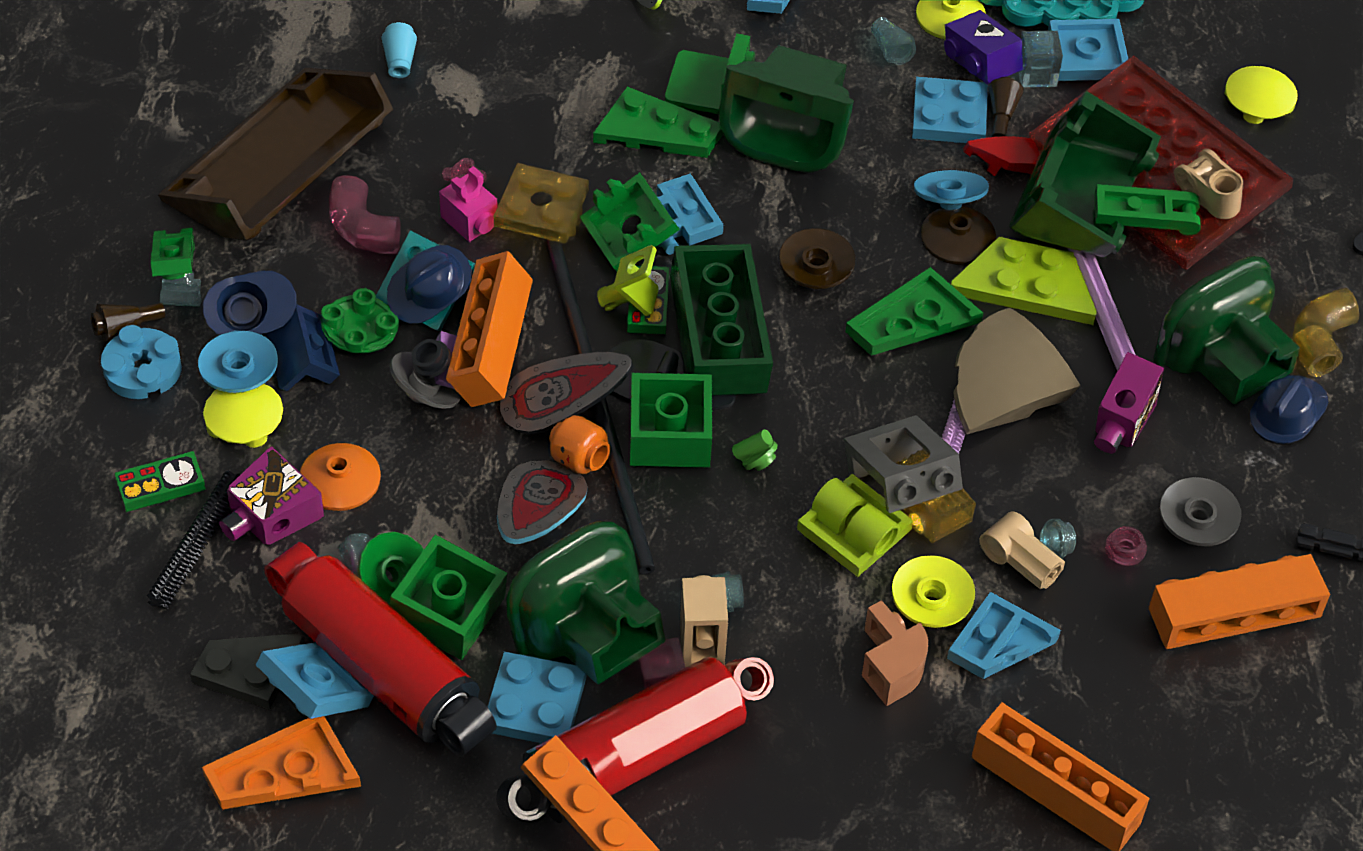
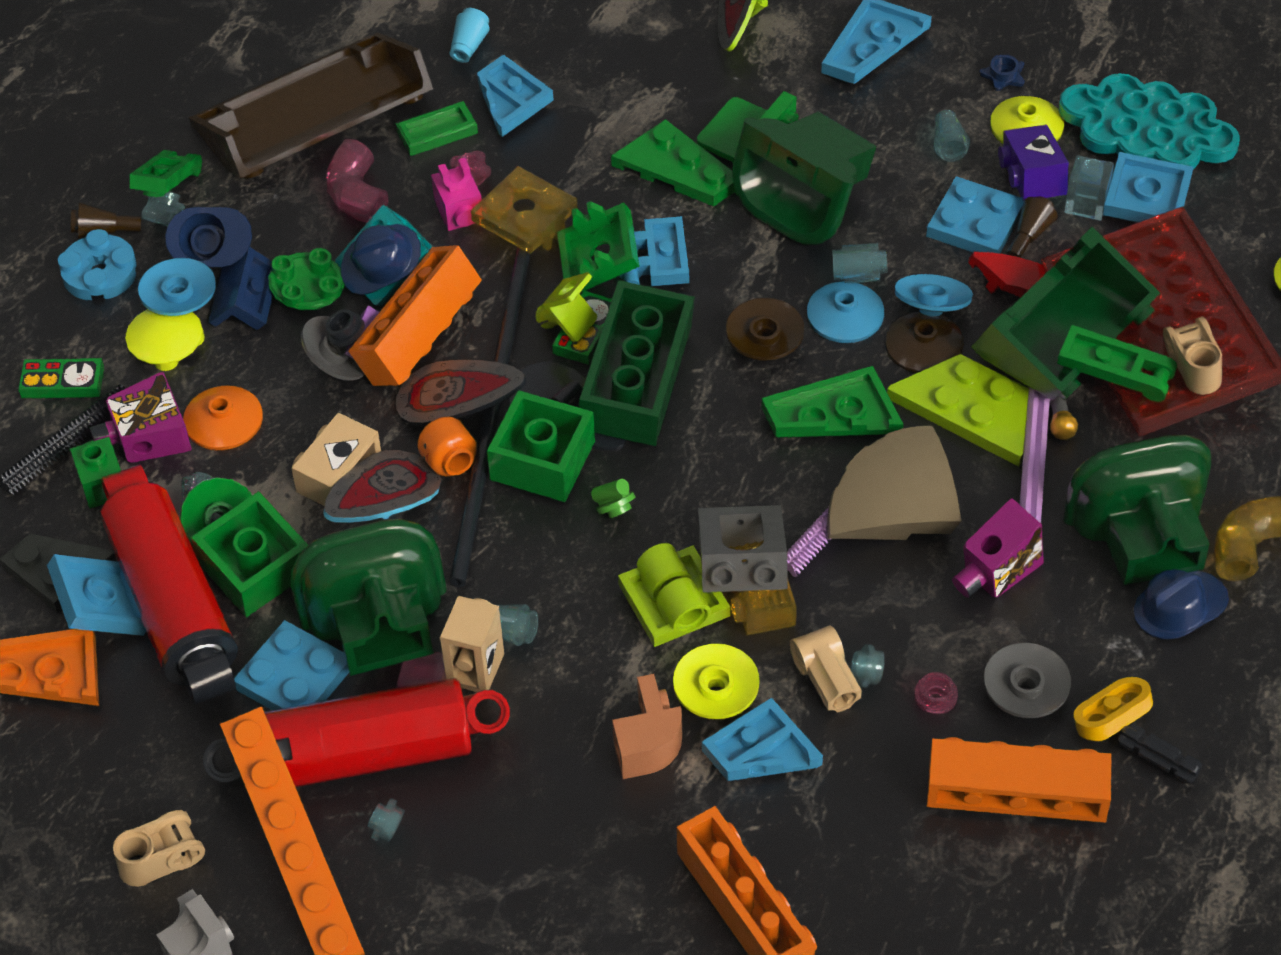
camera: 25 degrees right, 0 degrees up
(243, 560) = (92, 463): none -> green brick
(410, 146) = (437, 128): none -> green tile
(468, 96) = (511, 93): none -> dark azure wing
(476, 487) = (332, 455): none -> tan brick
(696, 809) = (385, 820): none -> clear light blue plate
(870, 177) = (859, 263): none -> clear light blue brick
(875, 225) = (845, 312): none -> dark azure dish
(1116, 276) = (1063, 424): none -> pearl gold piece
(1283, 515) = (1113, 708): none -> yellow plate

